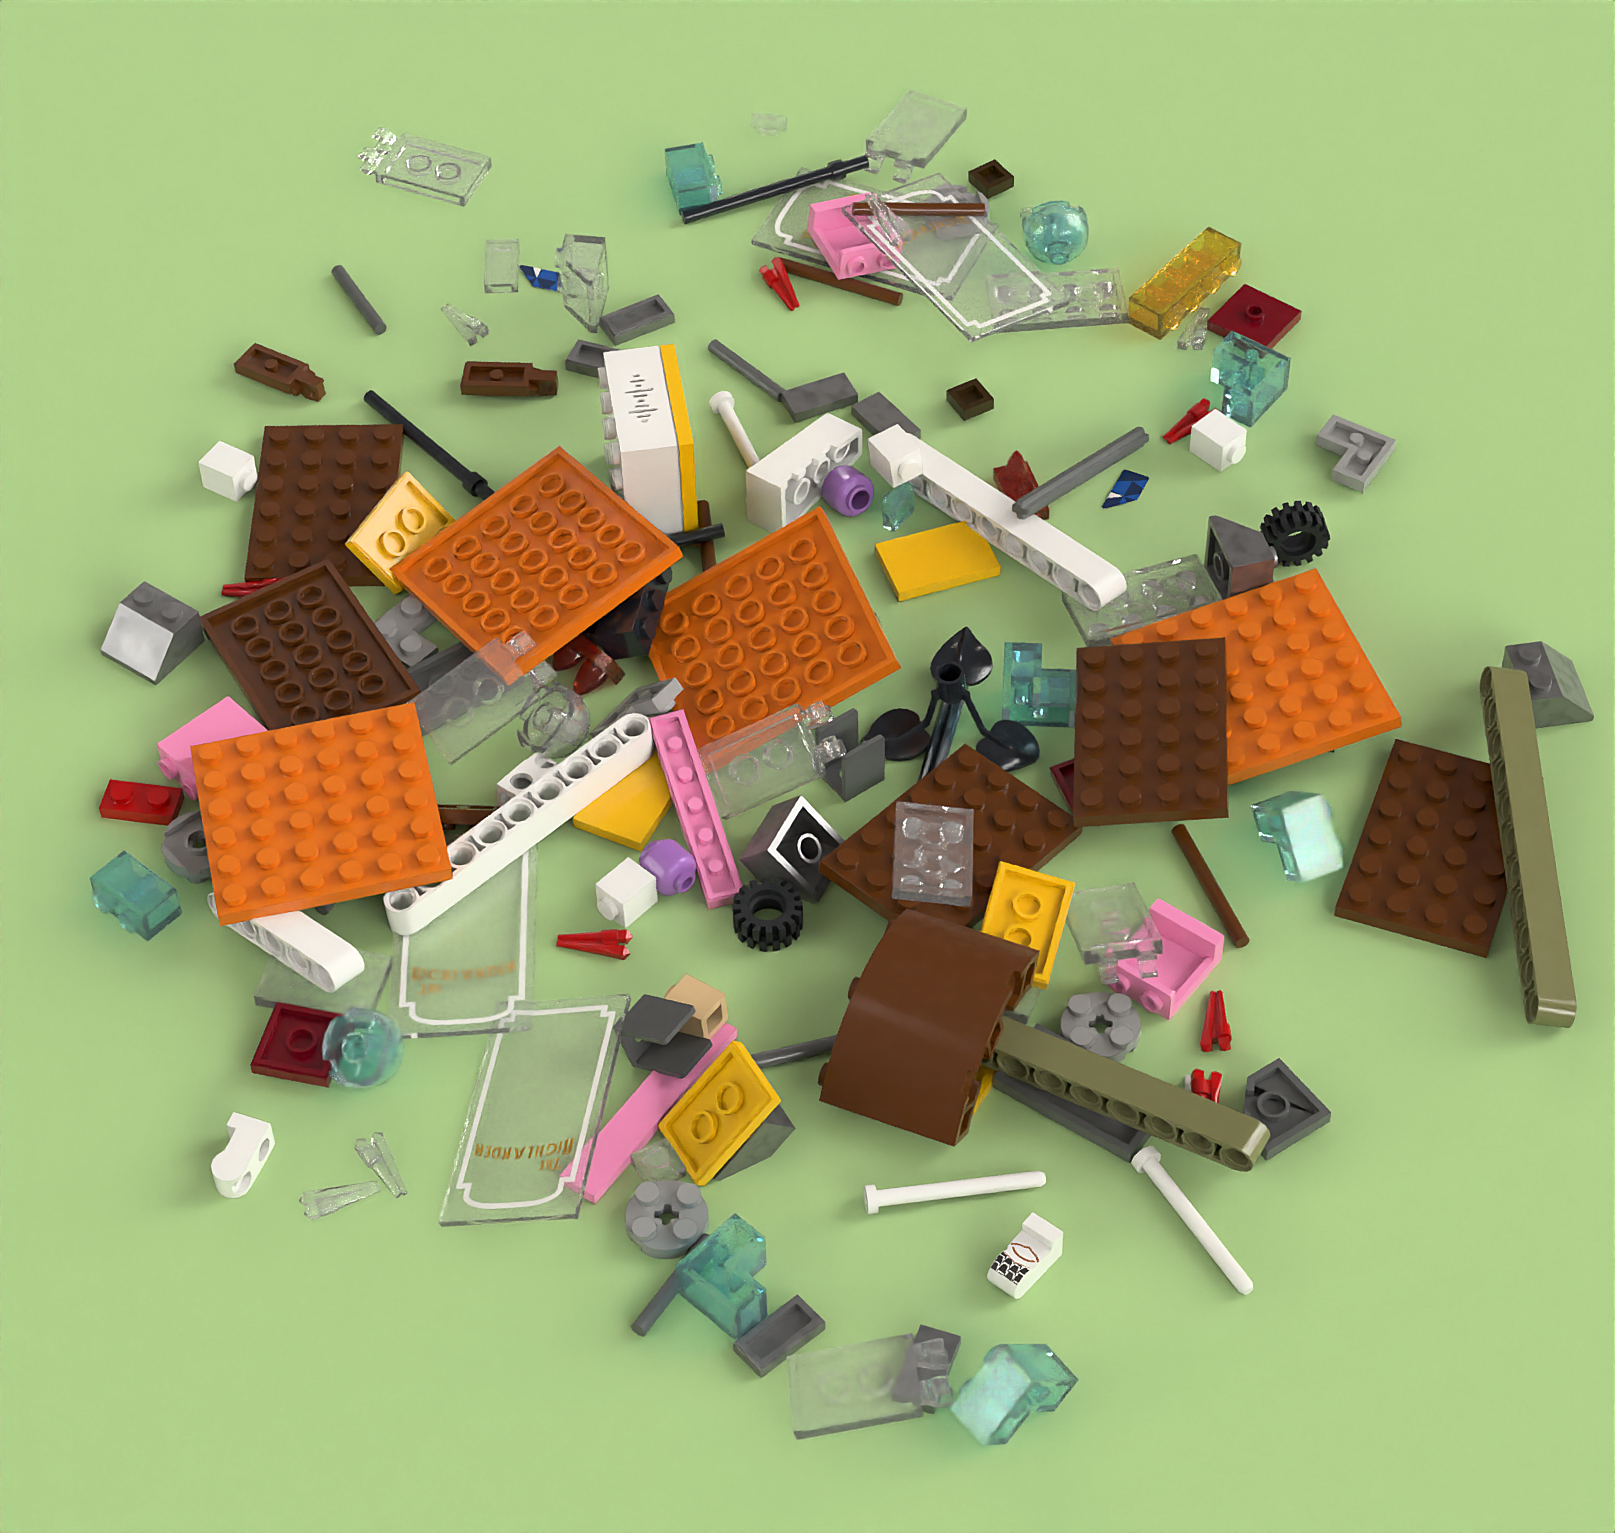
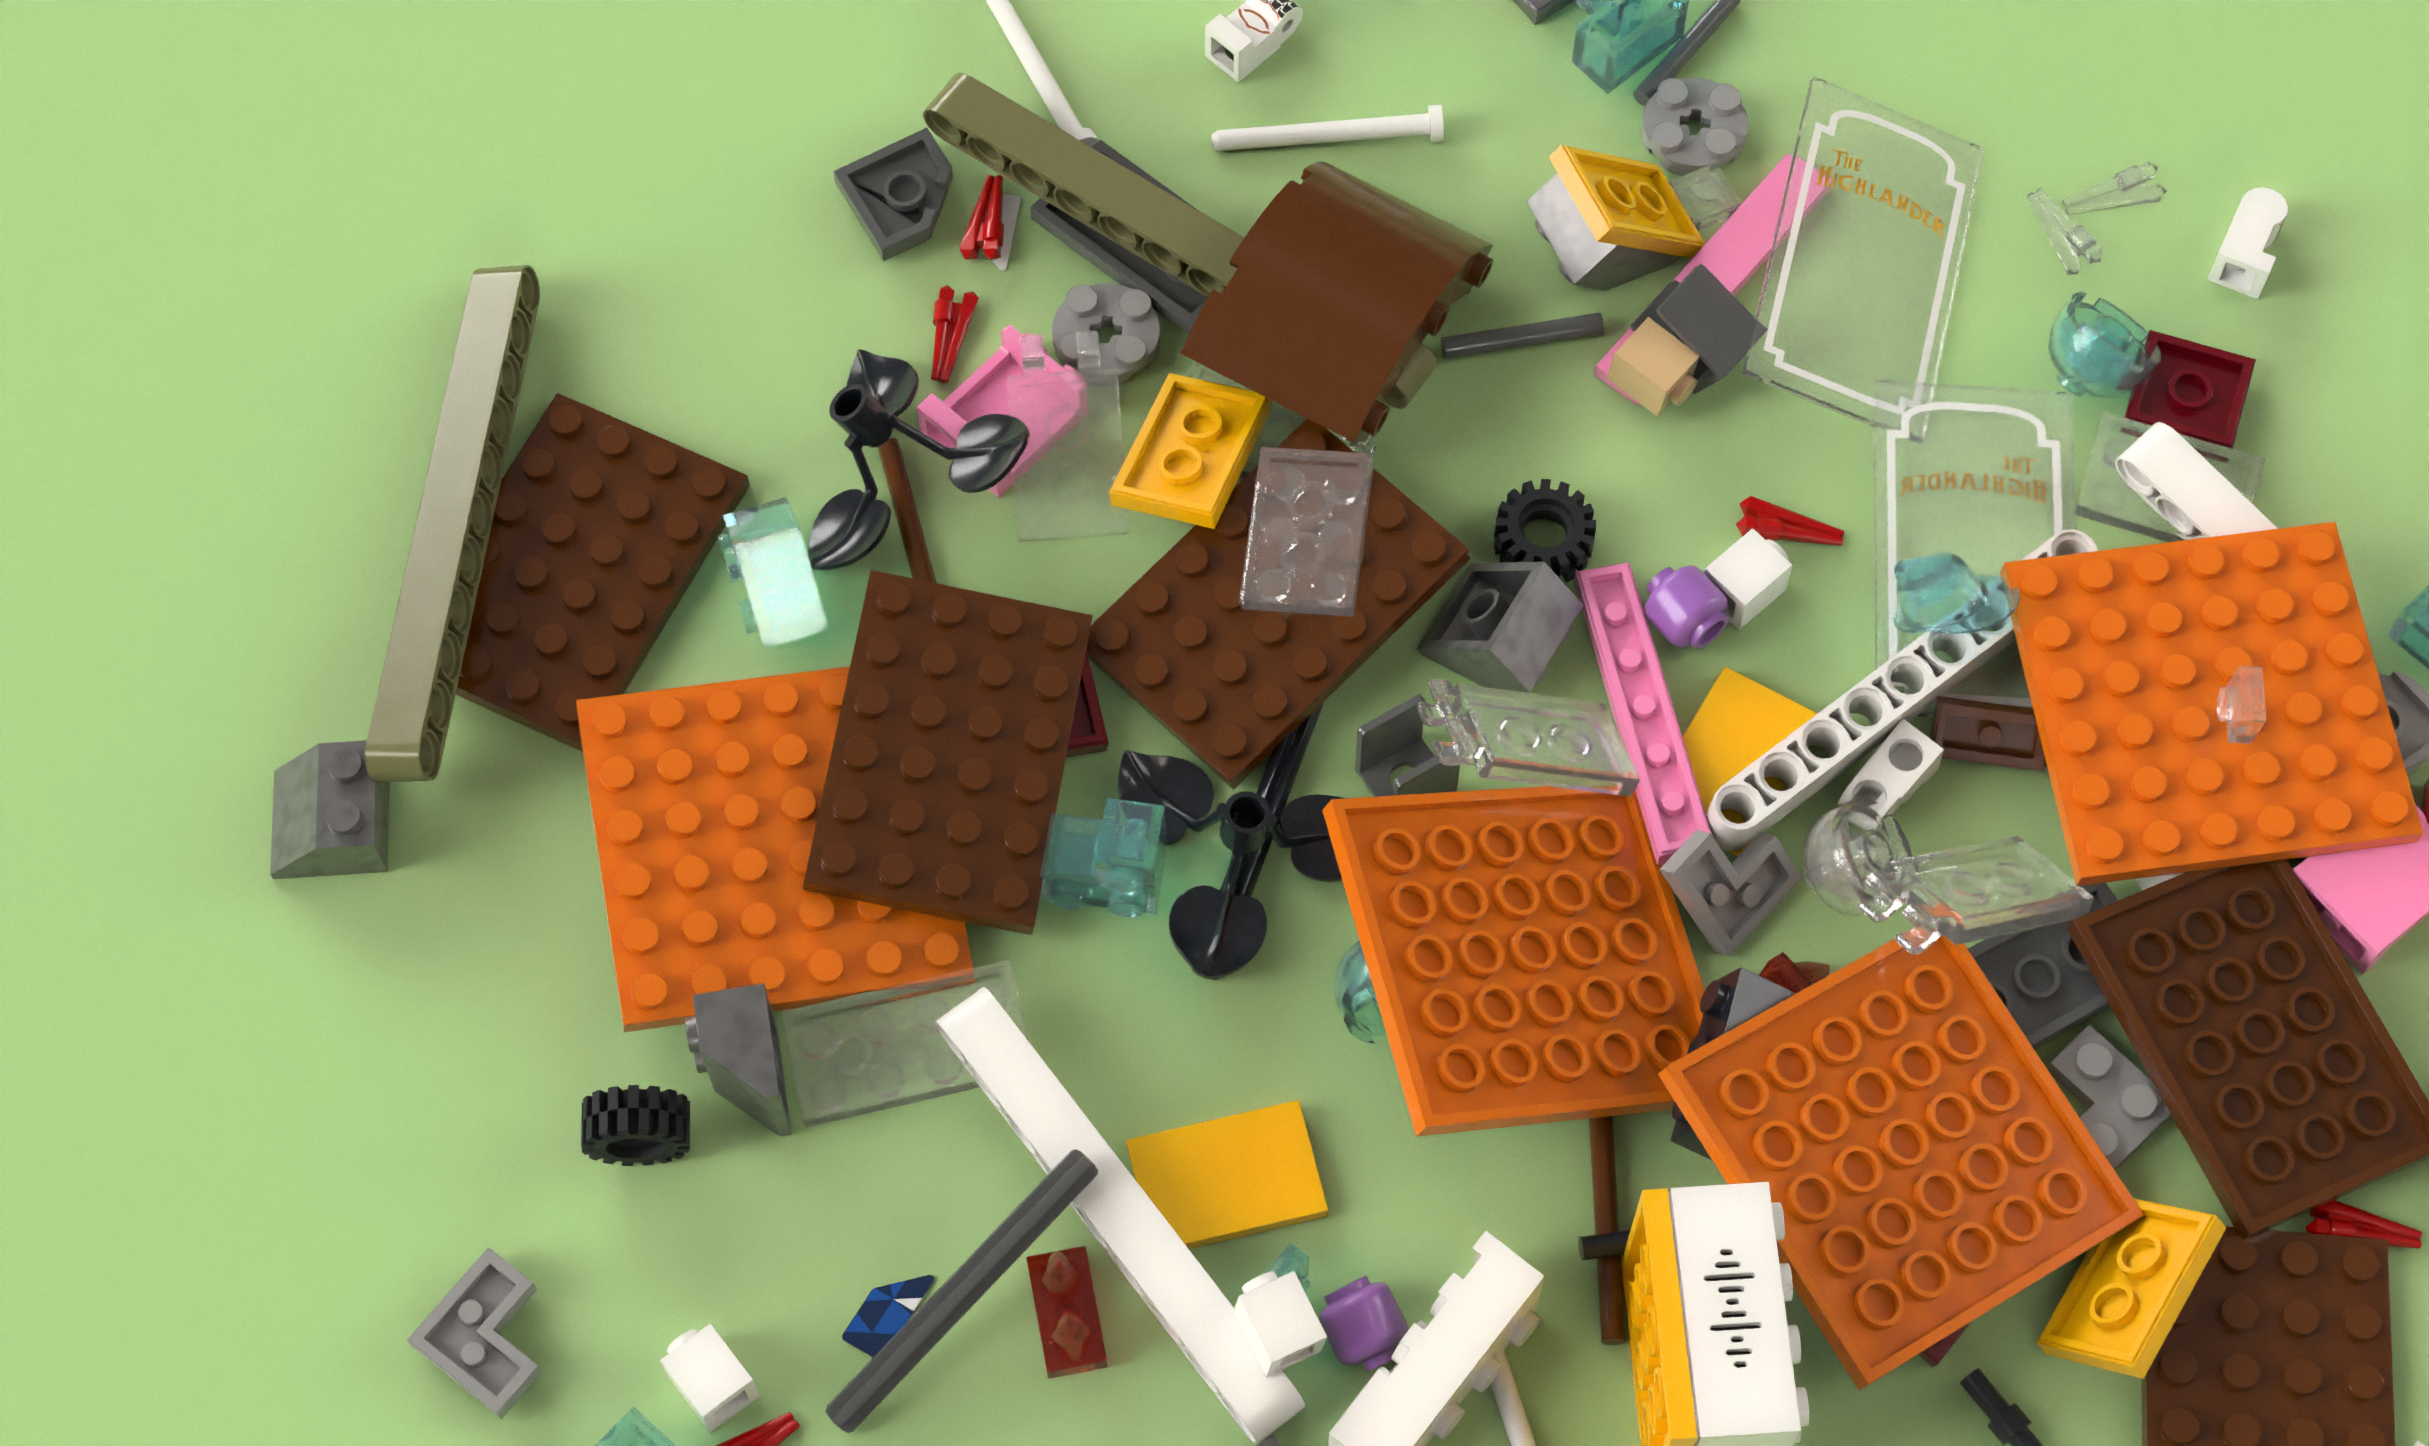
camera: 175 degrees left, 15 degrees up
(302, 776) = (2243, 704): none -> clear plate
(484, 858) = (1949, 597): none -> clear light blue piece
(1256, 884) = (868, 411): none -> black plant

